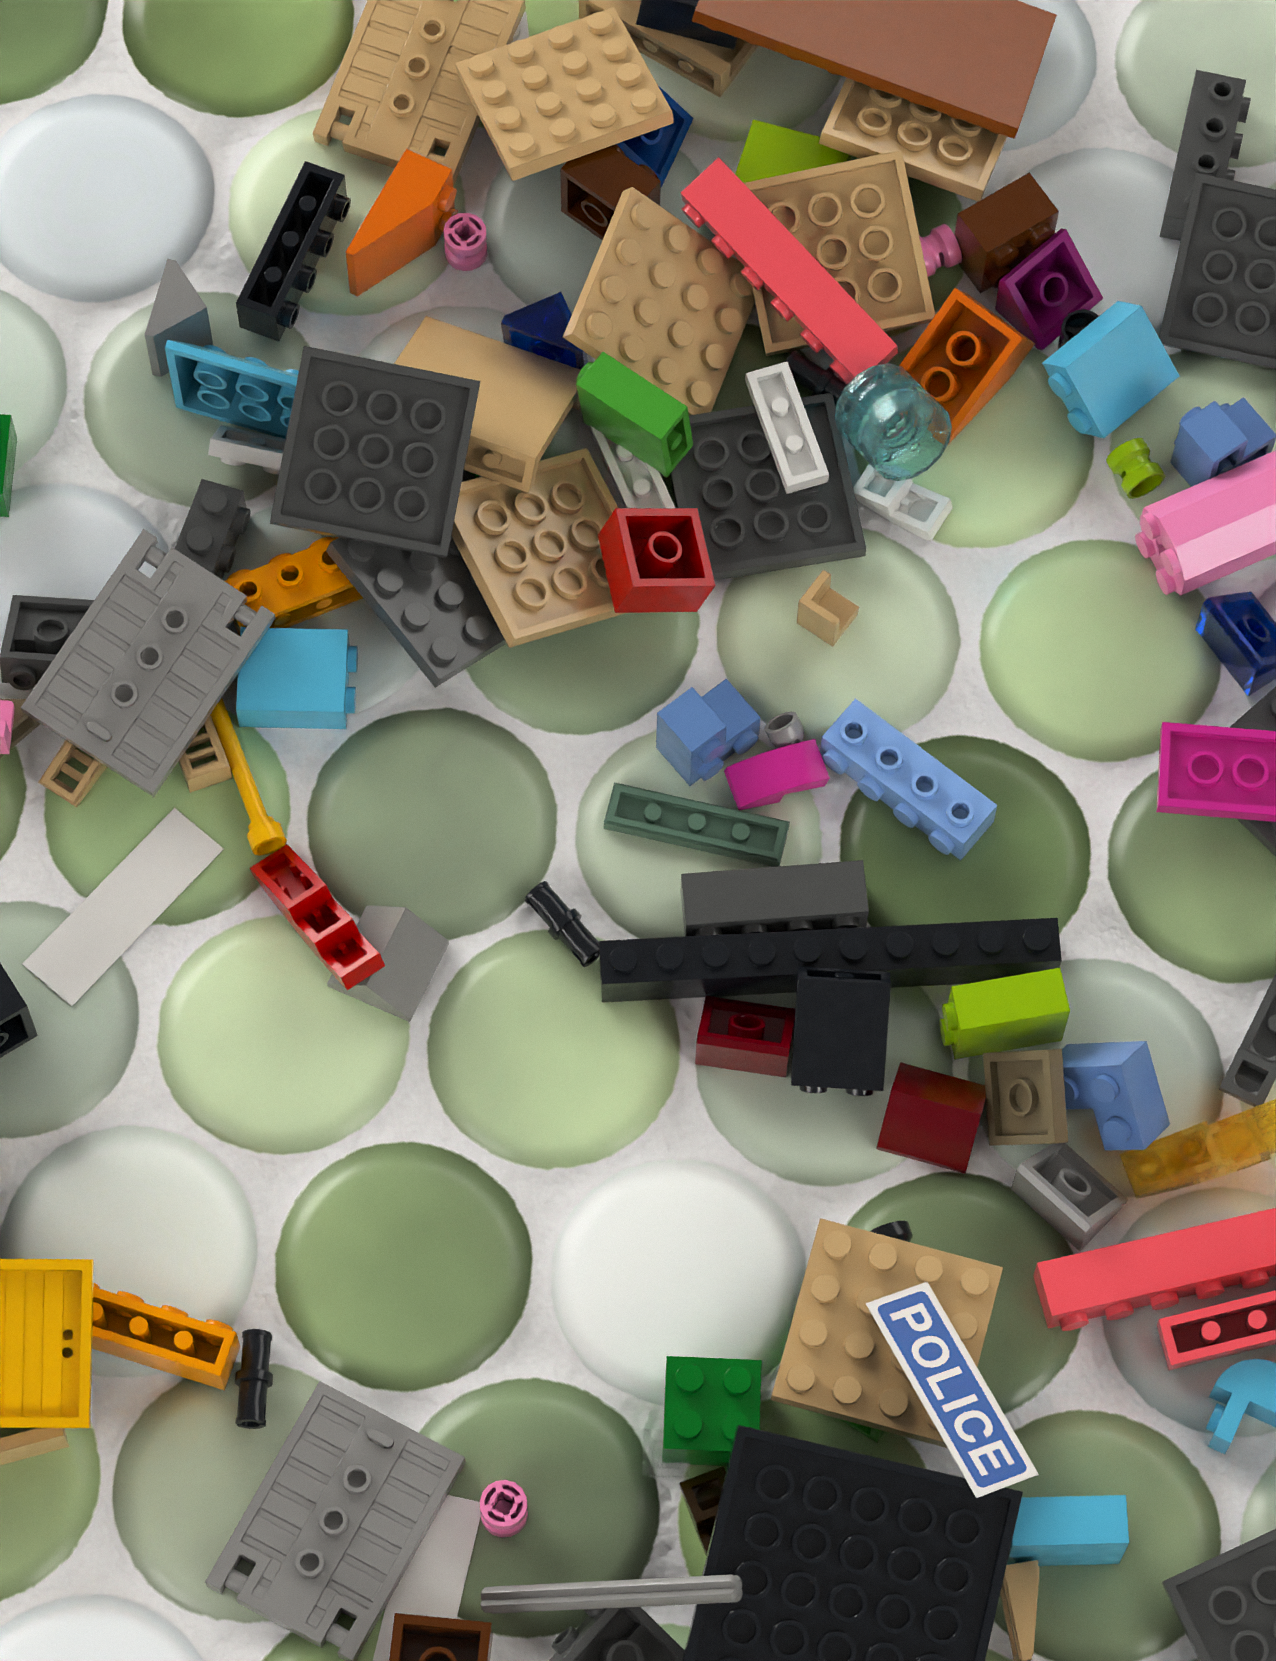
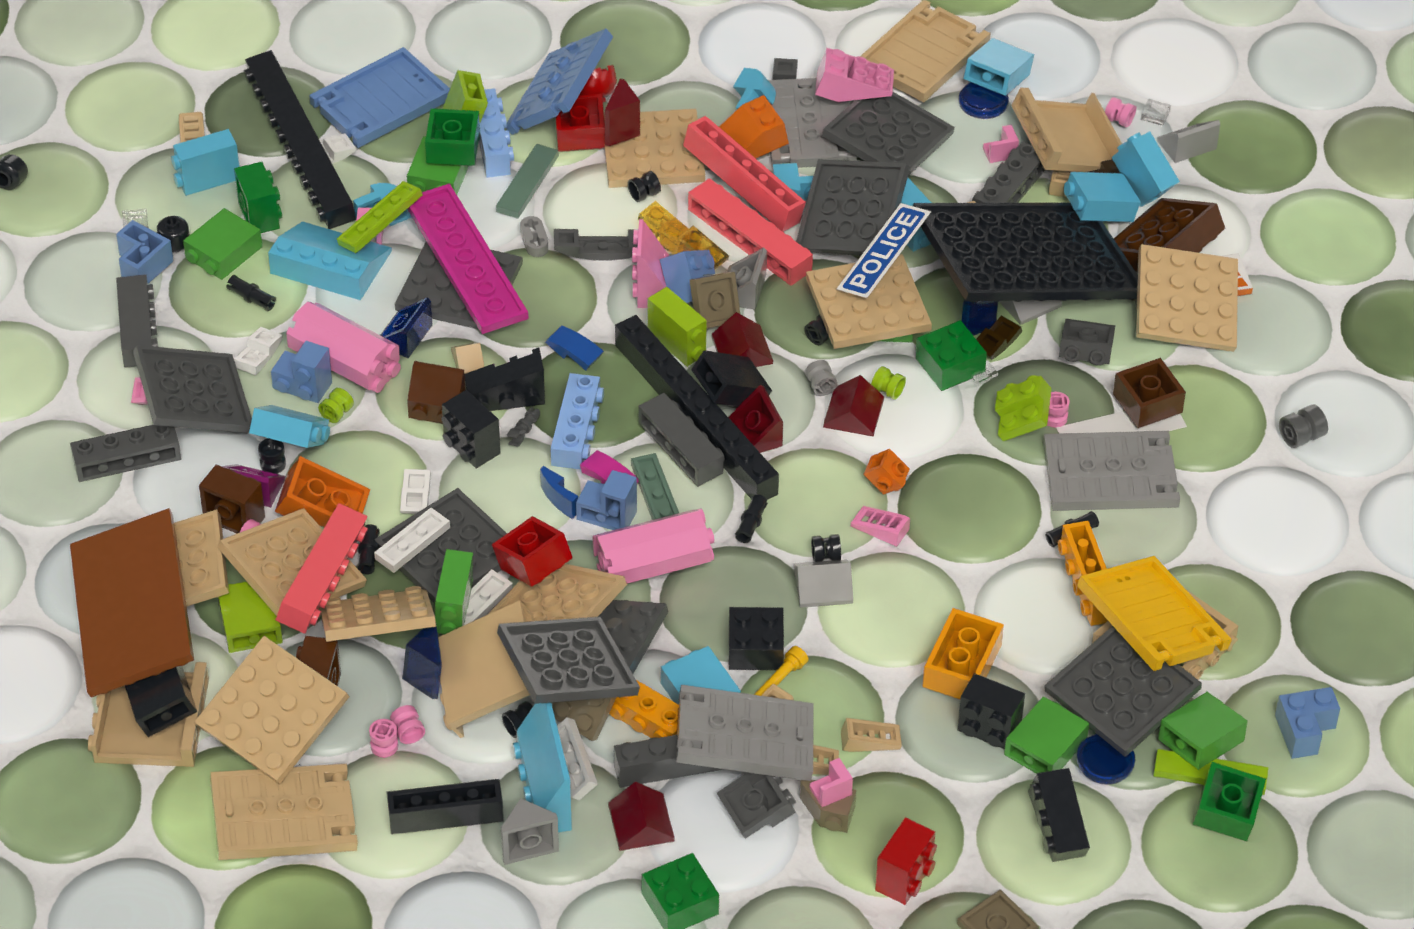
camera: 120 degrees left, 20 degrees down
(62, 839) = (854, 741): none -> tan slope
(108, 1053) = (963, 648): none -> light orange brick
(122, 907) = (876, 706): white sticker -> none
(125, 492) = (640, 818): none -> dark red slope
(317, 917) = (826, 607): red slope -> none
(329, 795) = (756, 638): none -> black brick
(402, 221) = (398, 761): orange slope -> none
(422, 1134) = (893, 535): none -> bright pink slope
(438, 992) = (832, 548): none -> black wheel
(479, 284) = (407, 723): none -> bright pink wheel
(524, 1159) = (886, 471): none -> orange brick
(525, 1447) = (1023, 407): none -> lime plate
(571, 736) = (655, 546): none -> bright pink brick
(612, 1594) = (1069, 334): light grey axle -> none
(697, 1206) = (854, 407): none -> dark red slope
(715, 1283) = (888, 382): none -> lime wheel
(775, 1186) = (821, 377): none -> light grey wheel
(785, 729) = (578, 477): light grey hinge -> none
(789, 678) = (560, 497): none -> blue slope
(825, 610) = (503, 493): tan panel -> none
(893, 422) = (381, 495): clear light blue wheel -> none
(935, 692) = (523, 426): none -> dark grey piece
(960, 608) = (471, 429): none -> black brick
(1031, 712) = (510, 384): none -> black wedge
(1063, 602) = (430, 388): none -> reddish brown slope
(1071, 861) = (576, 346): none -> blue slope
(1113, 1424) = (850, 204): none -> dark grey plate
(1130, 697) = (468, 357): none -> tan slope
(1164, 1019) = (648, 267): none -> bright pink slope

